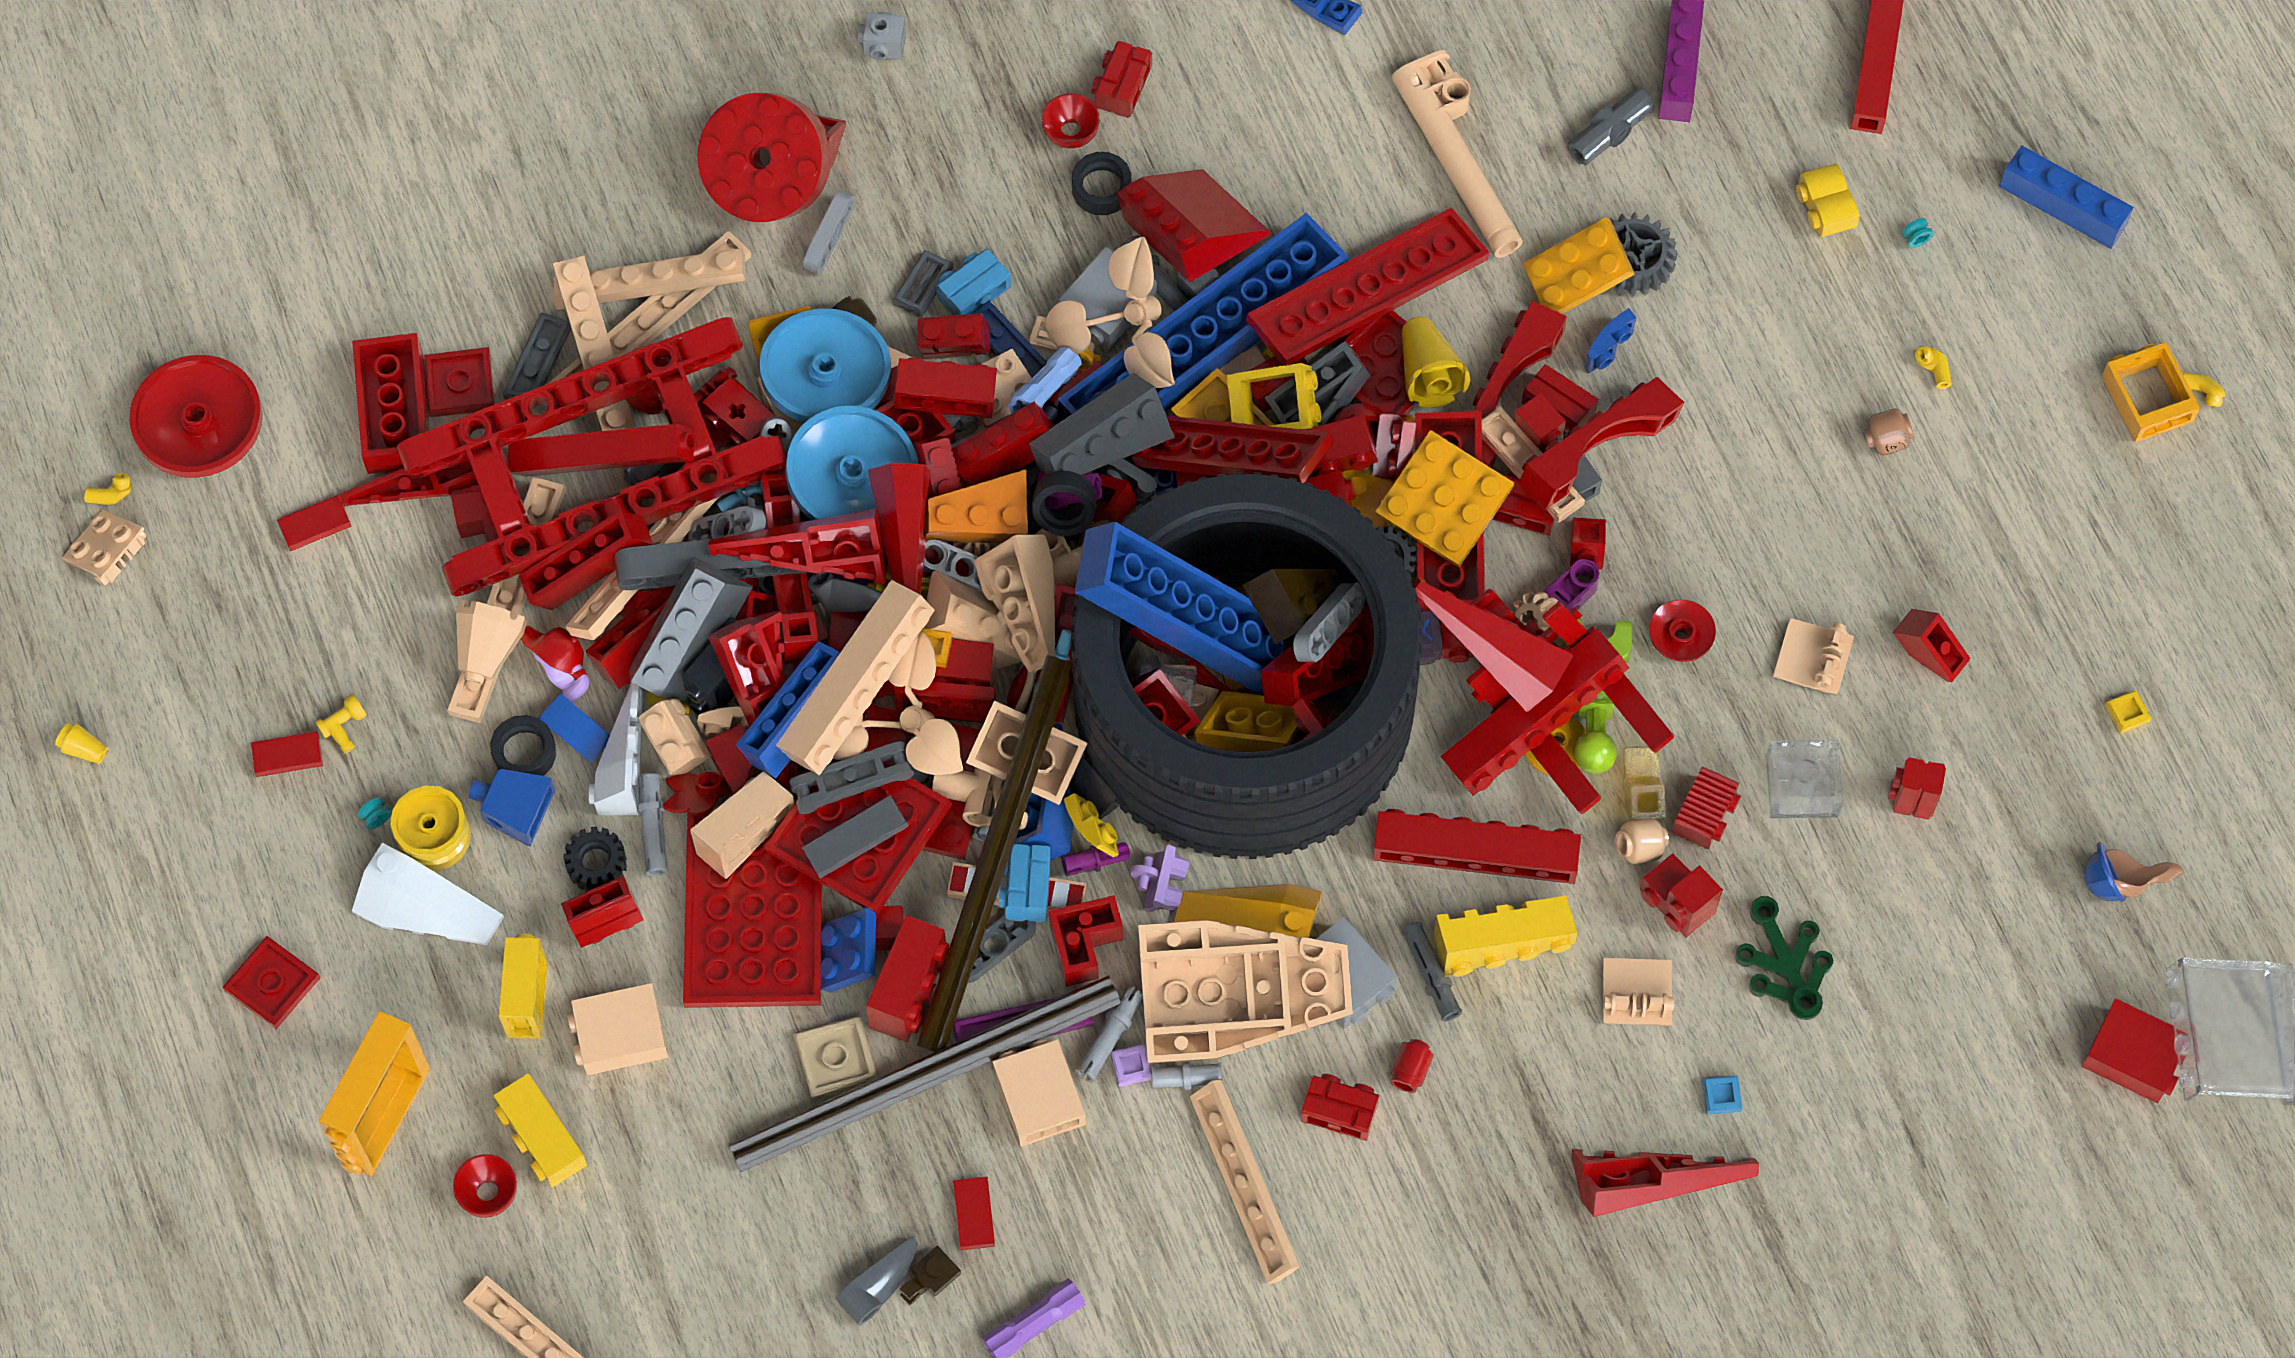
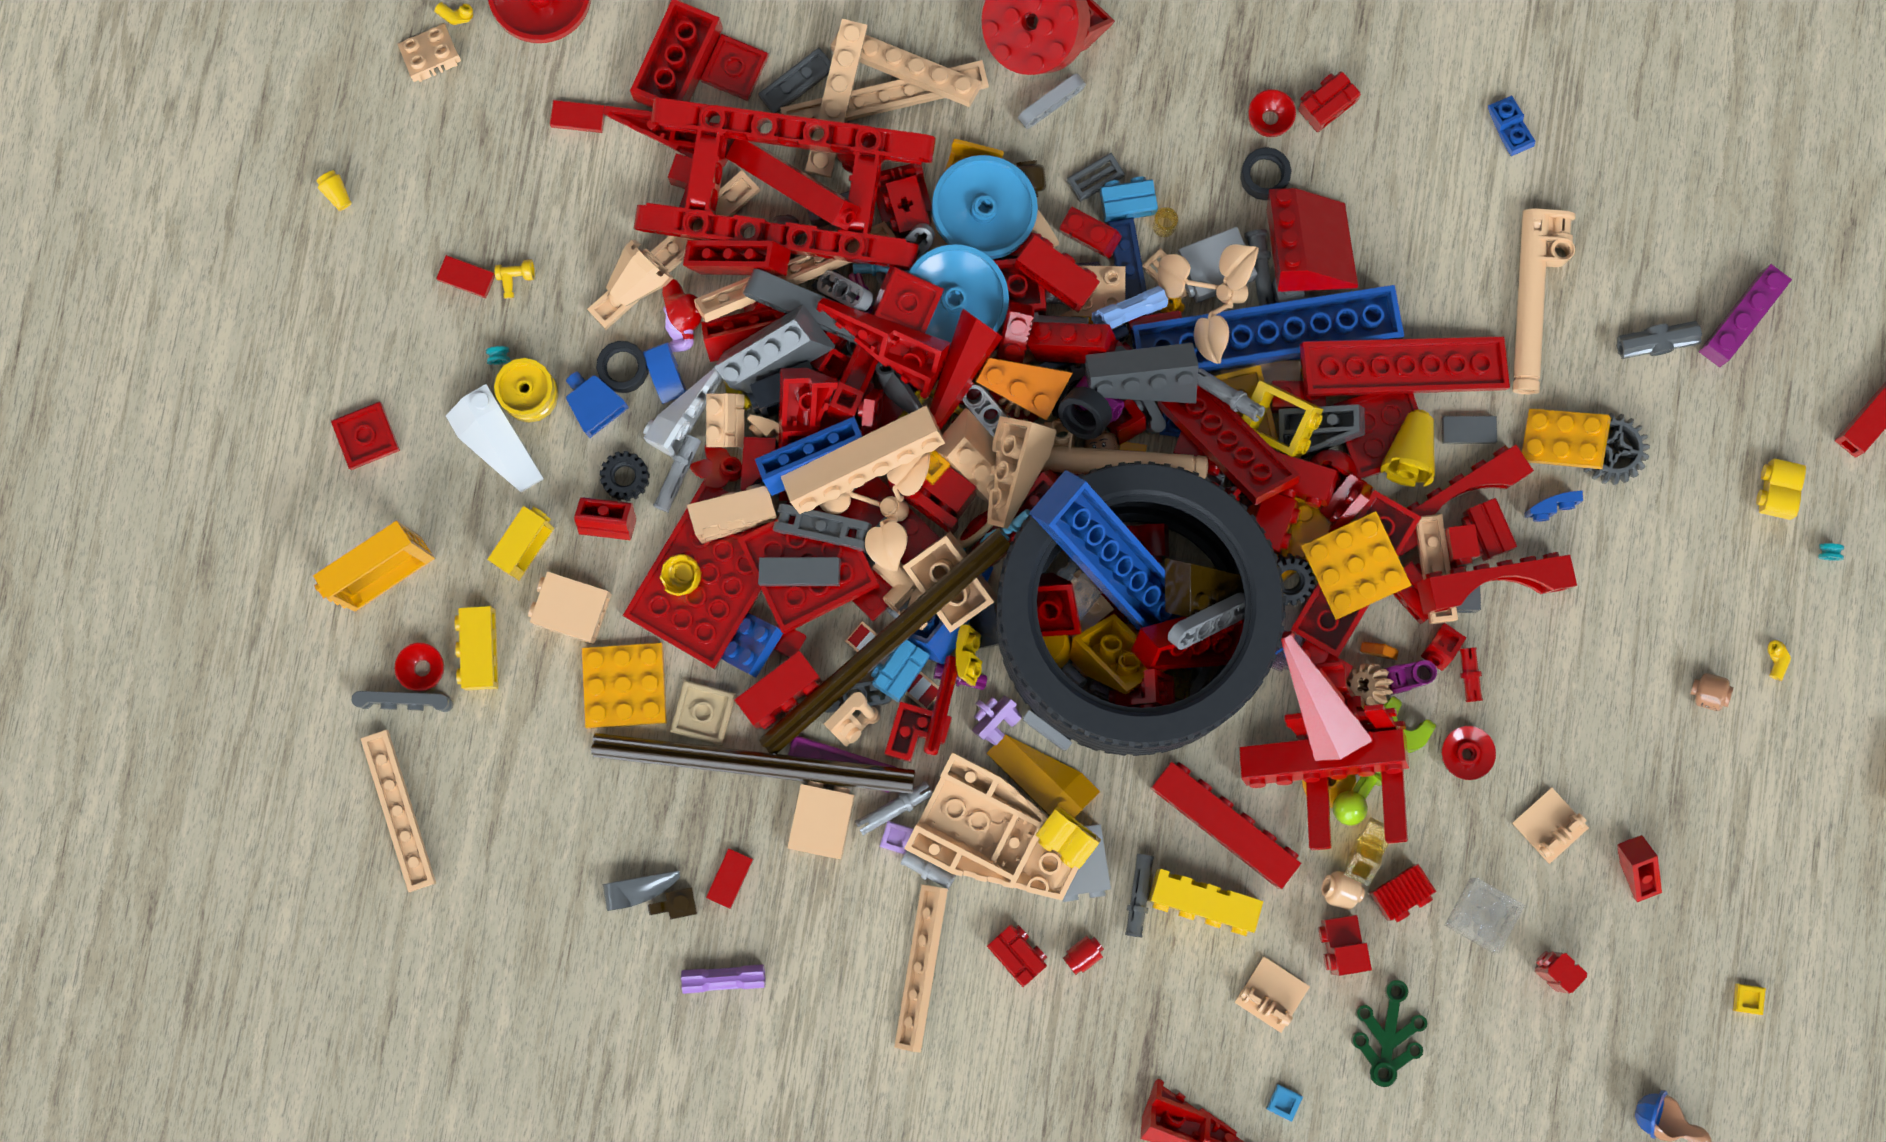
camera: 35 degrees right, 15 degrees up
(475, 1239) = (390, 700): none -> dark grey plate
(724, 918) = (680, 575): none -> yellow hair
(729, 1079) = (624, 685): none -> light orange plate
(804, 492) = (909, 301): none -> red tile
(830, 629) = (871, 411): none -> red plate
(1000, 971) = (845, 725): none -> light nougat plate
(1022, 276) = (1165, 213): none -> clear yellow beam
(1096, 888) = (941, 706): none -> red axle
(1214, 407) = (1236, 399): none -> light grey pin
(1225, 859) = (1047, 731): none -> light grey tile
(1318, 936) = (1068, 838): none -> yellow brick
(1475, 318) = (1469, 429): none -> dark grey tile
(1524, 582) = (1379, 650): none -> orange tile
(1634, 553) = (1471, 674): none -> red pin

